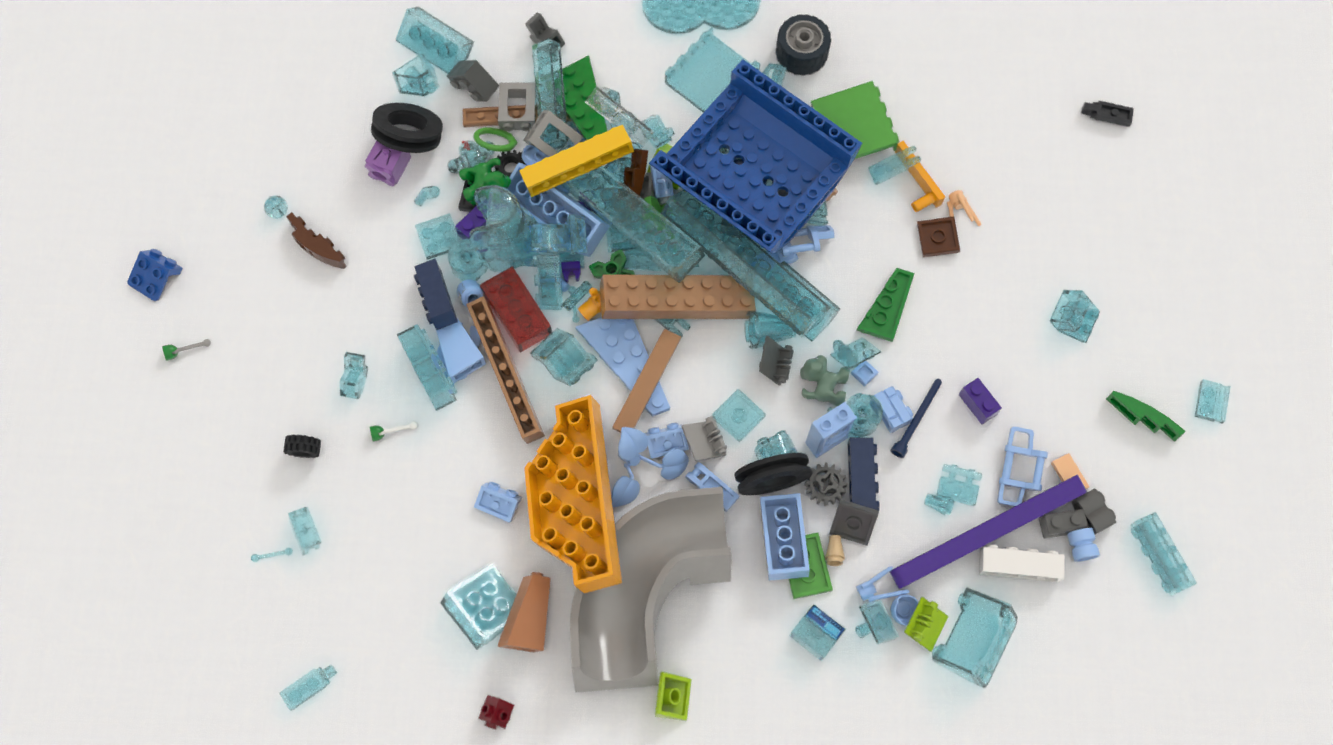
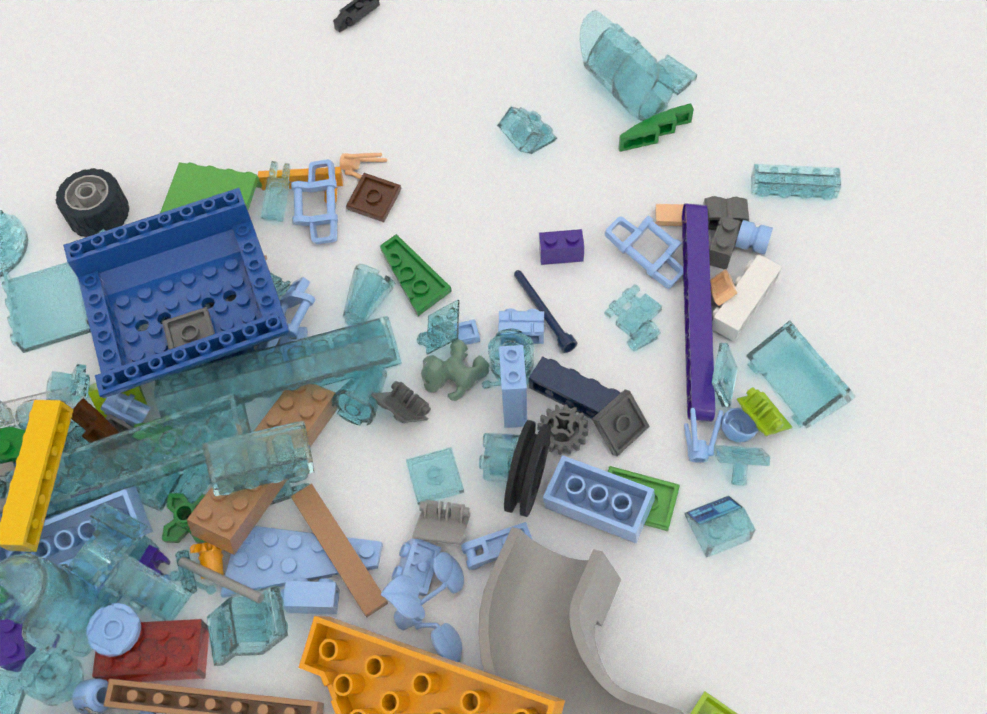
camera: 55 degrees left, 10 degrees down
(513, 277) = (113, 629): none -> light blue tile
(582, 321) = (221, 580): none -> light grey bar
(606, 385) = (311, 597): none -> light blue brick
(668, 293) = (258, 458): none -> clear light blue slope
(736, 184) = (188, 327): none -> dark grey tile
(835, 553) = (641, 460): tan cone -> none
(847, 283) = (365, 294): none -> clear light blue cone
(898, 218) = (315, 186): none -> light blue bar
(939, 578) = (724, 375): none -> clear light blue plate
(1017, 541) = (722, 287): none -> light nougat tile
(1187, 360) = (624, 67): none -> clear light blue animal

